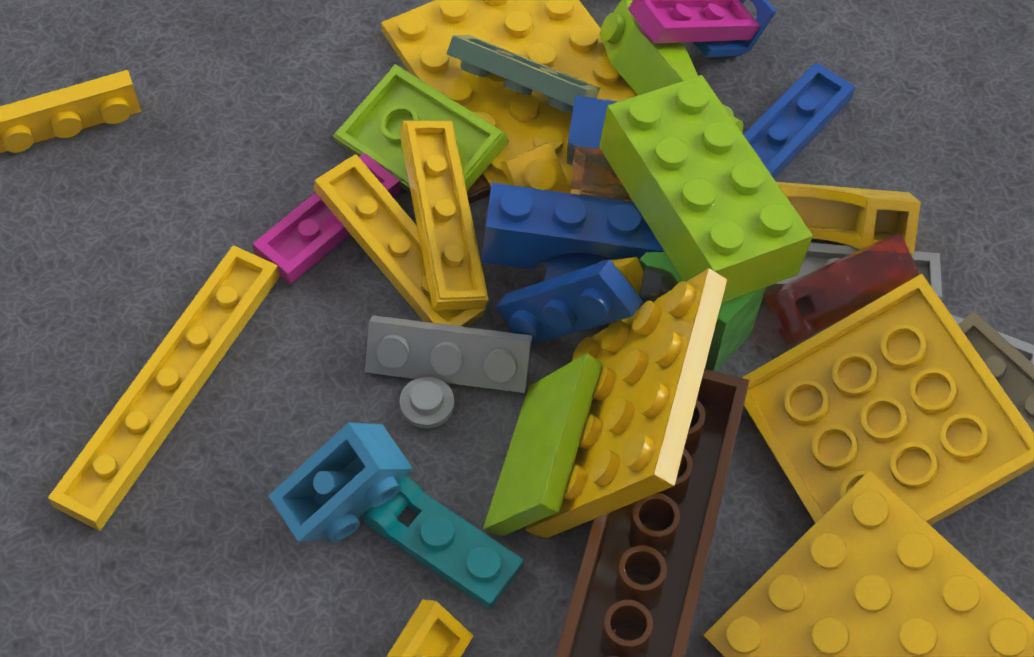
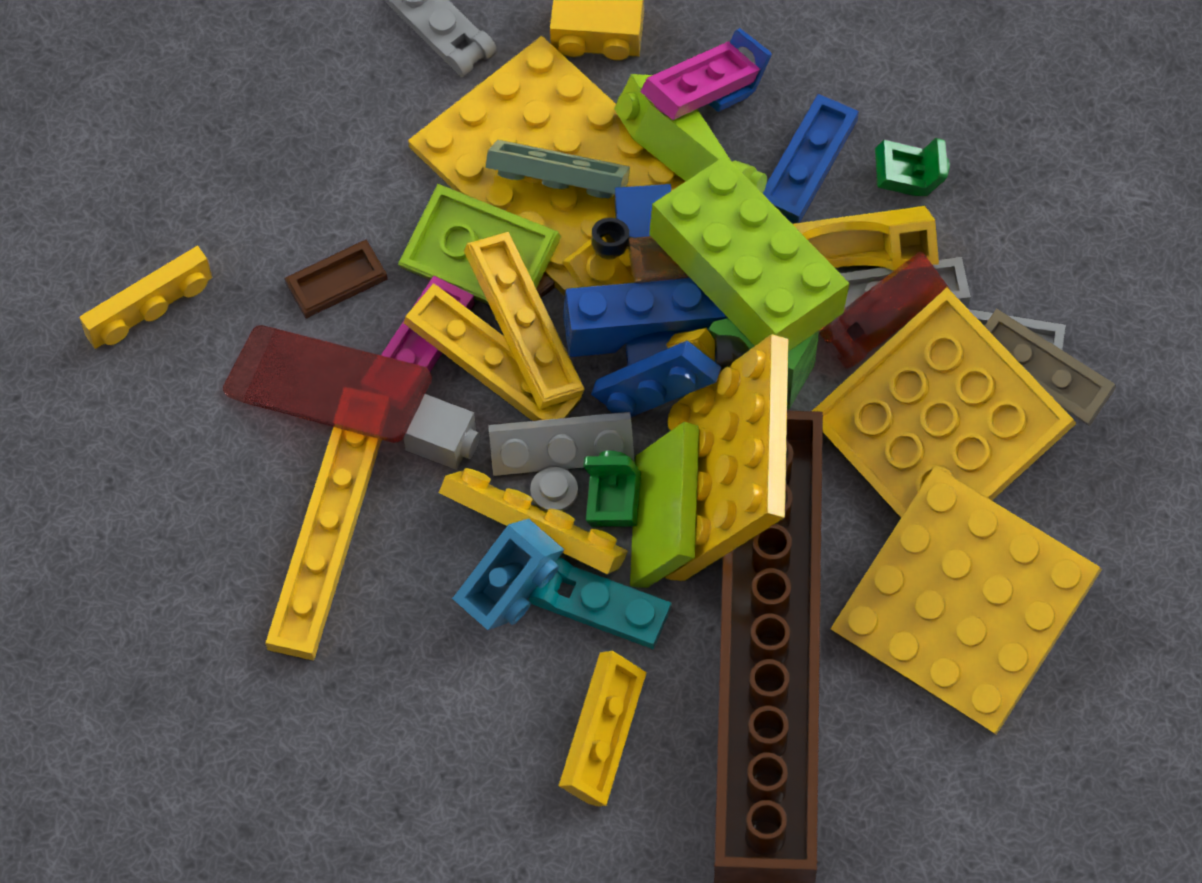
camera: 10 degrees left, 5 degrees up
(218, 237) = (328, 383): none -> clear red piece
(265, 137) = (336, 278): none -> reddish brown tile
(320, 312) = (442, 432): none -> light grey brick
(447, 475) = (511, 506): none -> yellow plate
(490, 416) = (612, 490): none -> green bracket
(563, 141) = (616, 235): none -> black hinge
(900, 155) = (910, 168): none -> green bracket

